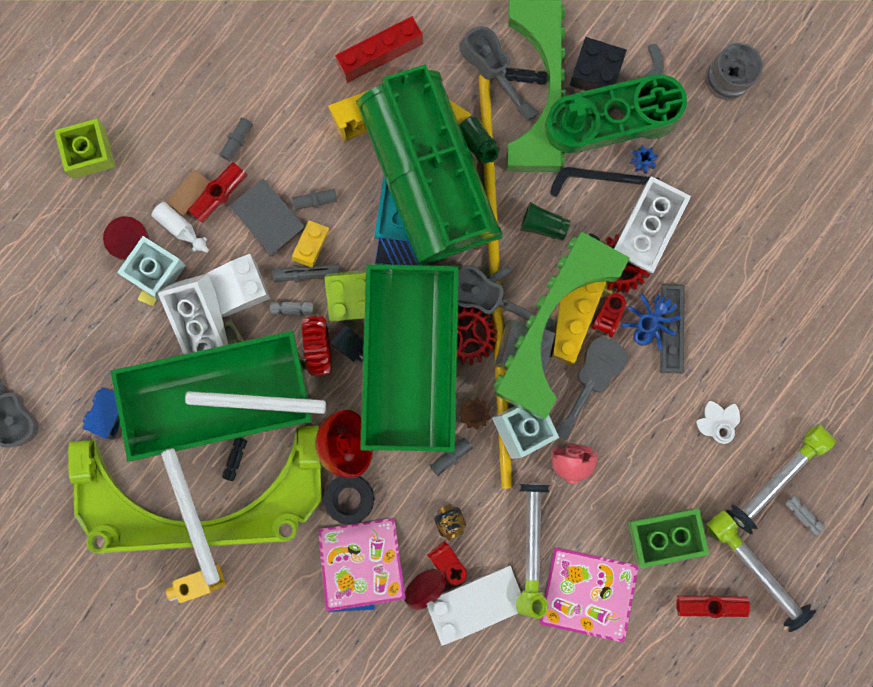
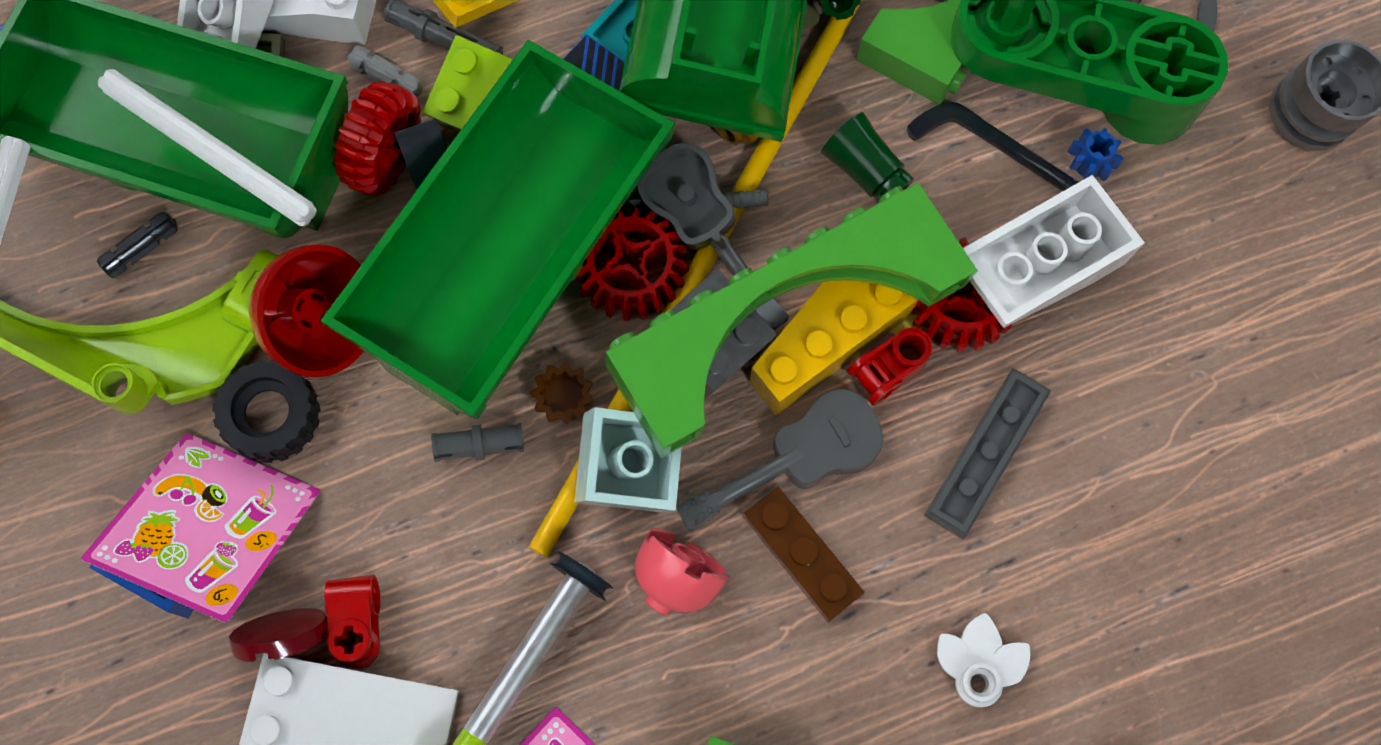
camera: 30 degrees right, 10 degrees down
(450, 522) = (404, 549): head -> none
(619, 421) = (803, 554): none -> reddish brown plate
(650, 323) = (951, 415): blue animal -> none

